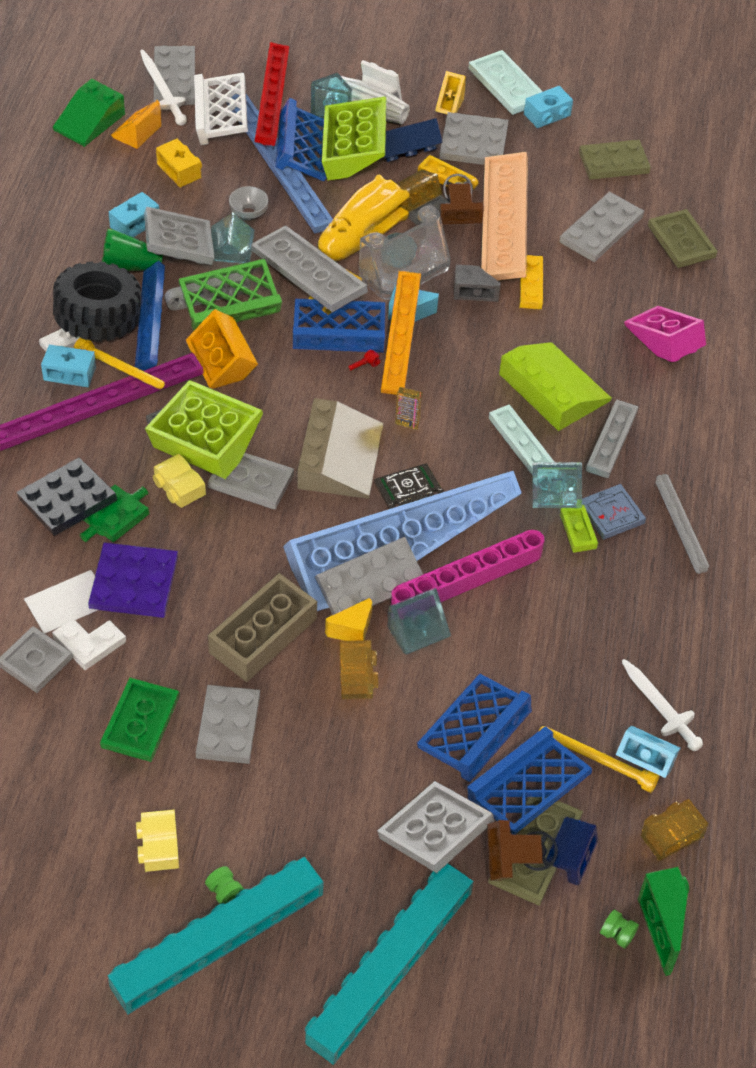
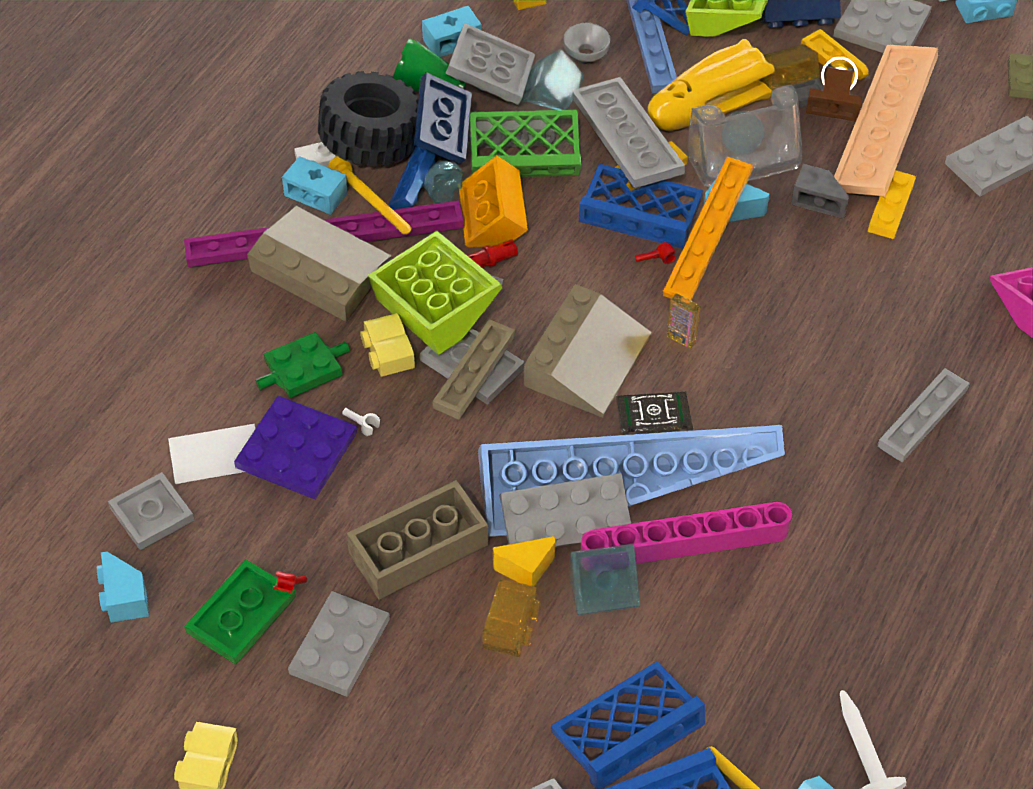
camera: 20 degrees right, 0 degrees up
(38, 726) = (124, 589): none -> medium azure slope
(66, 496) = (256, 333): plate -> none
(91, 647) = (217, 512): white plate -> none
(96, 427) = (316, 262): none -> dark tan slope
(160, 288) = (443, 118): none -> plate
(170, 686) = (287, 581): none -> red hand
(173, 339) = (442, 181): none -> clear light blue hair
(183, 547) = (363, 421): none -> white hand
(239, 388) = (491, 255): none -> red pin
(258, 483) = (473, 369): none -> dark tan plate
(519, 437) = (811, 396): light aqua plate -> none
(552, 383) = (873, 330): lime slope -> none
(557, 484) = (830, 455): clear light blue slope -> none
(578, 529) = (842, 515): lime plate -> none
(613, 511) = (892, 504): sand blue tile -> none
(682, 524) = (975, 541): light grey axle -> none

